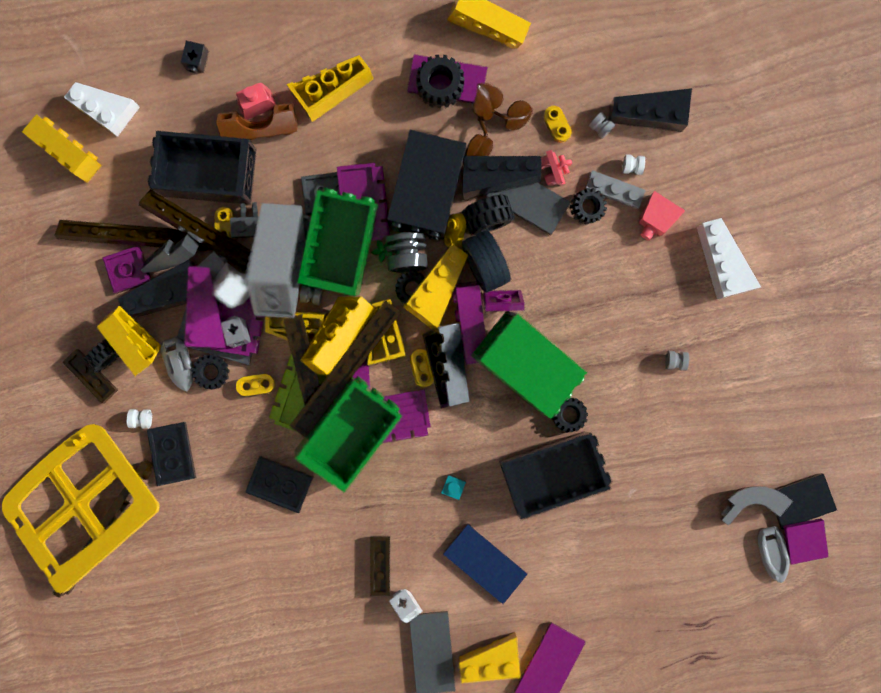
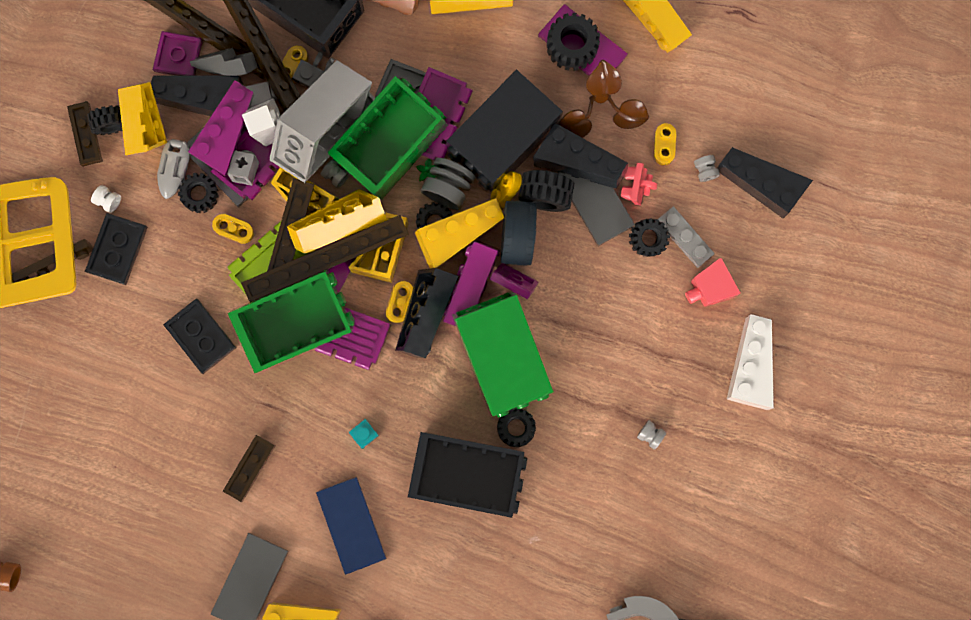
camera: 30 degrees right, 5 degrees down
(412, 608) = (250, 520): white brick -> none
(631, 164) = (716, 222): white wheel -> none

